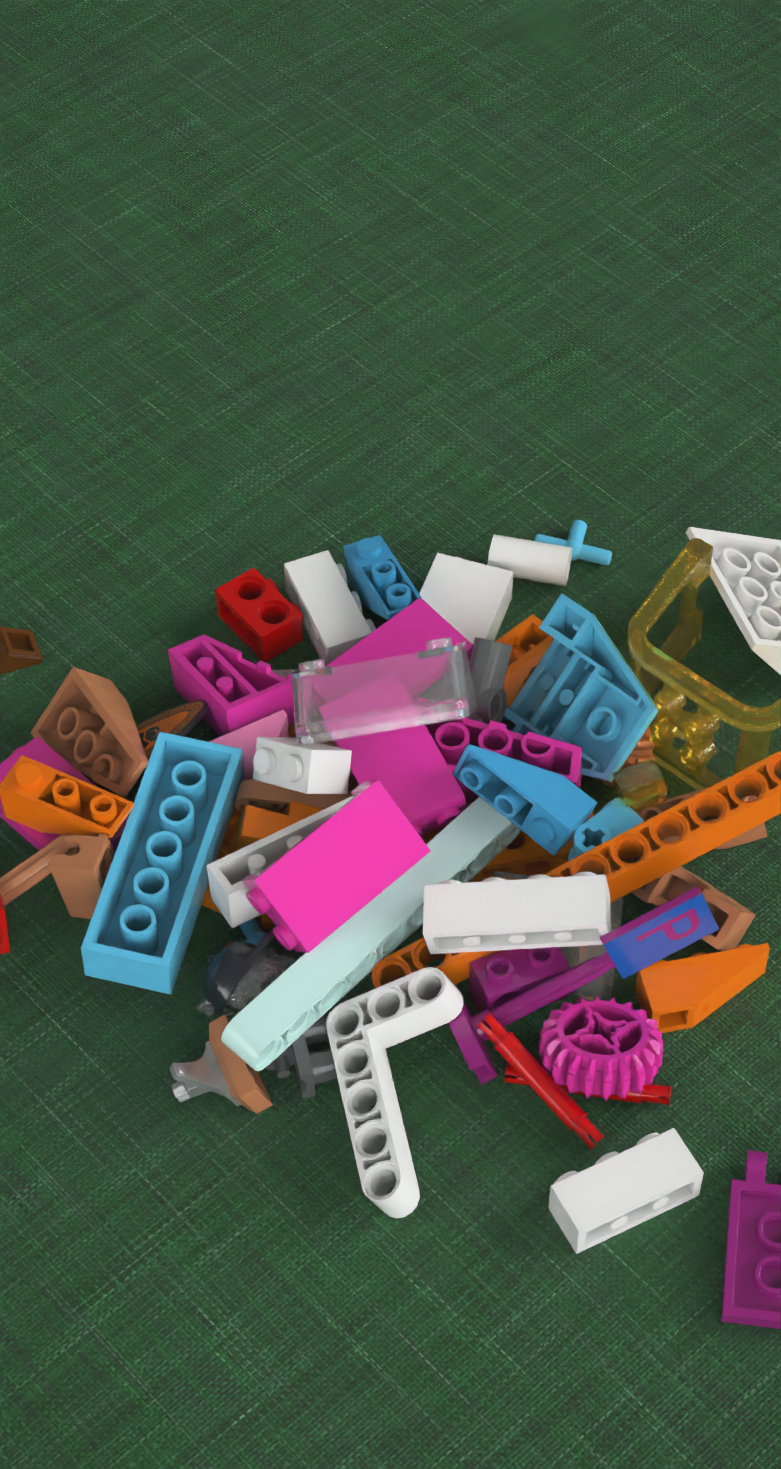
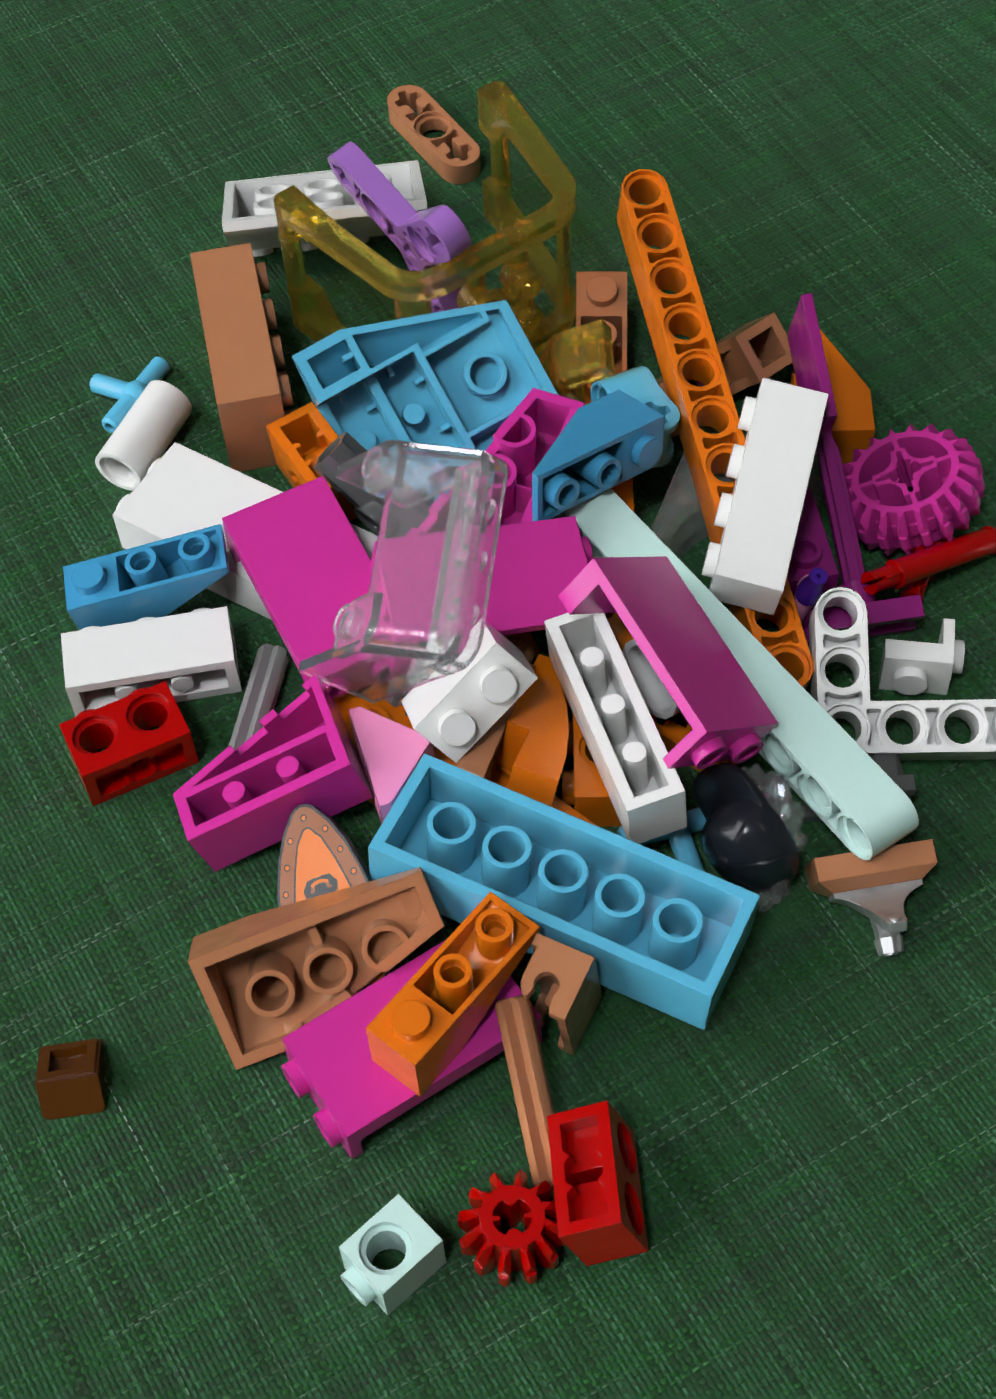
camera: 75 degrees left, 5 degrees up
(438, 1096) = (922, 666): none -> white bracket
(463, 979) = (809, 591): none -> dark purple piece
(607, 579) = (242, 351): none -> nougat brick
(703, 641) = (421, 236): none -> medium lavender piece

